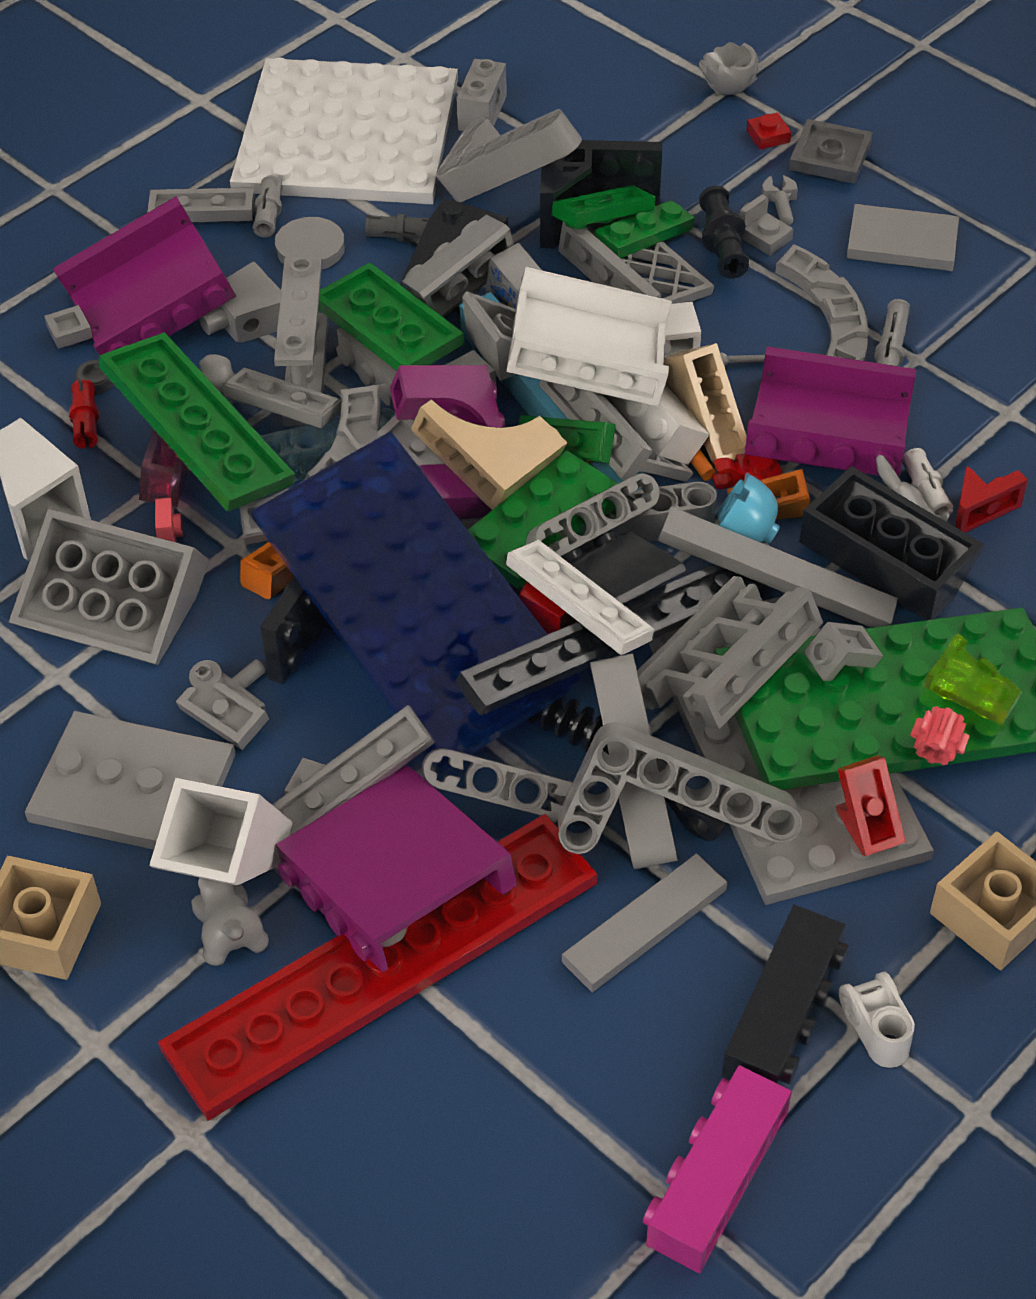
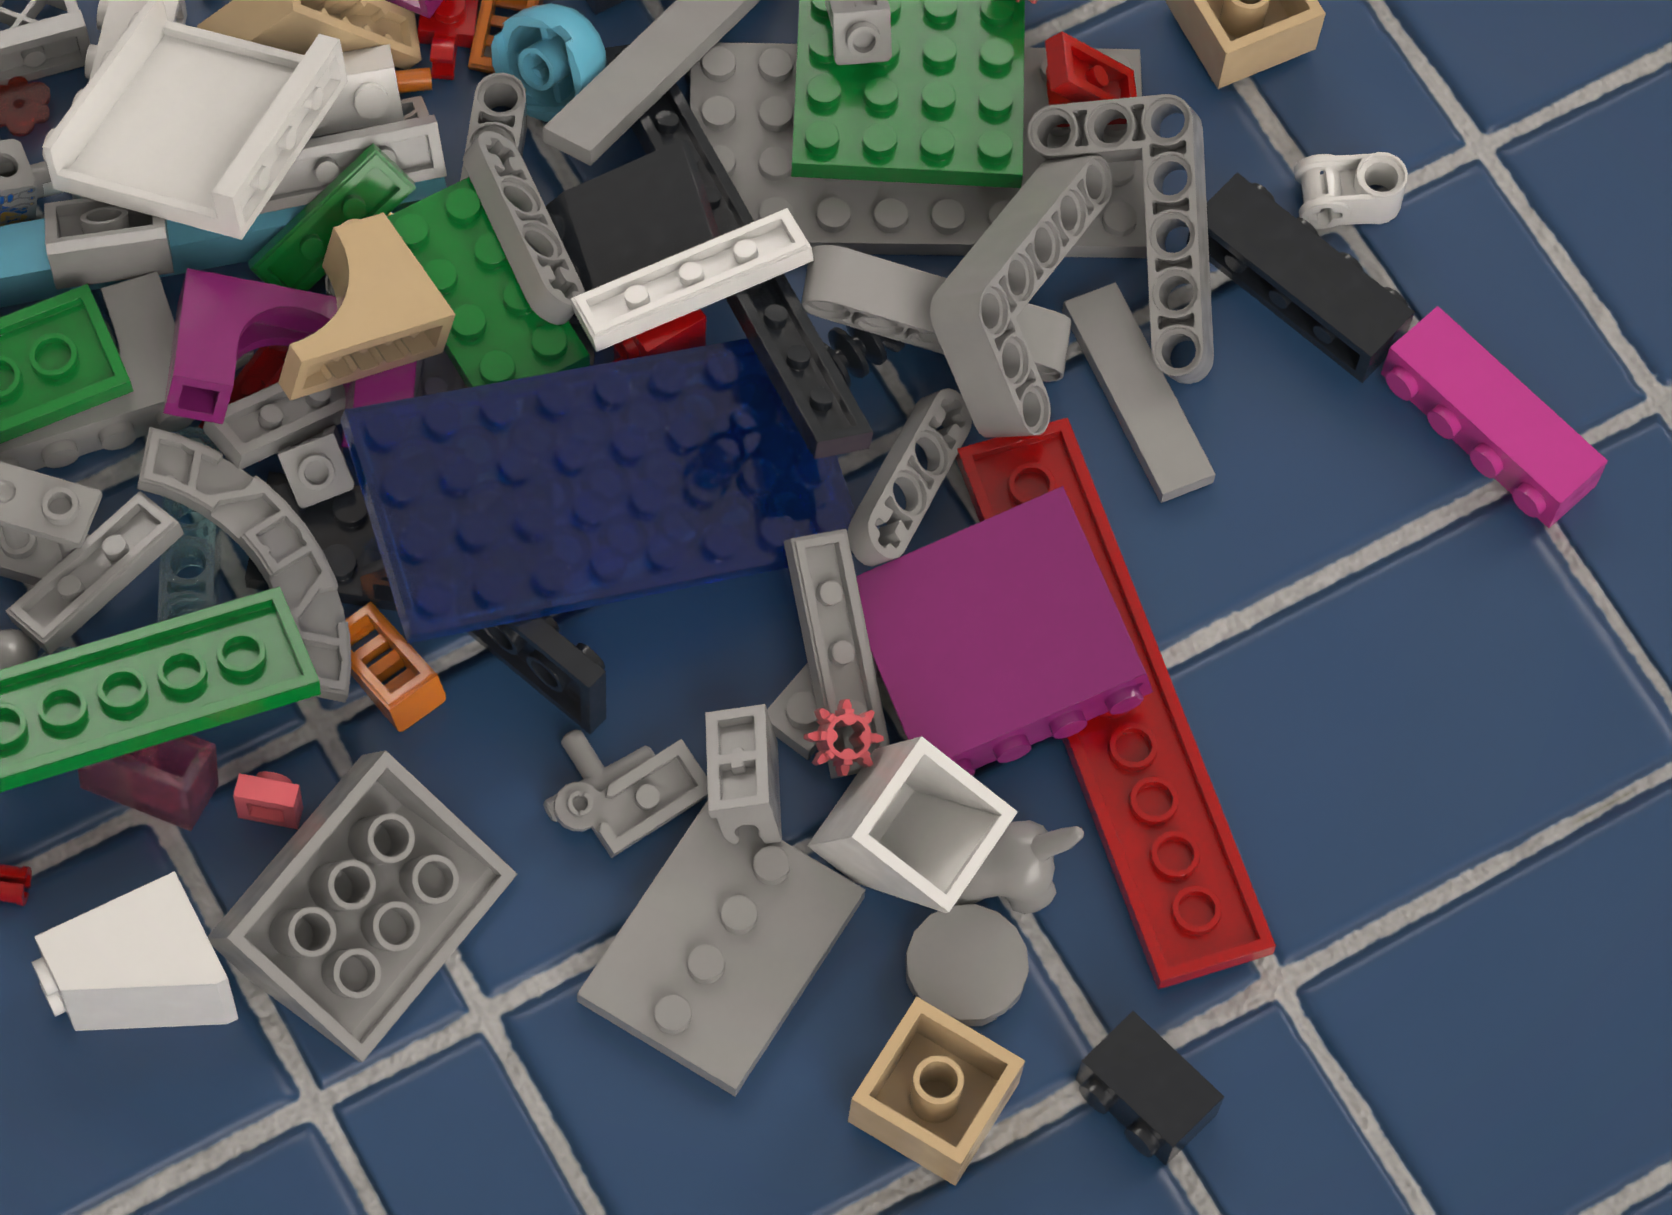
camera: 80 degrees left, 15 degrees up
(72, 1056) = (1147, 1089): none -> black brick
(150, 925) = (967, 963): none -> light grey tile
(248, 751) = (743, 772): none -> light grey hinge
(282, 785) = (860, 739): none -> coral gear
(762, 640) = (844, 120): light grey fence -> none
(775, 884) = (1162, 211): none -> light grey beam

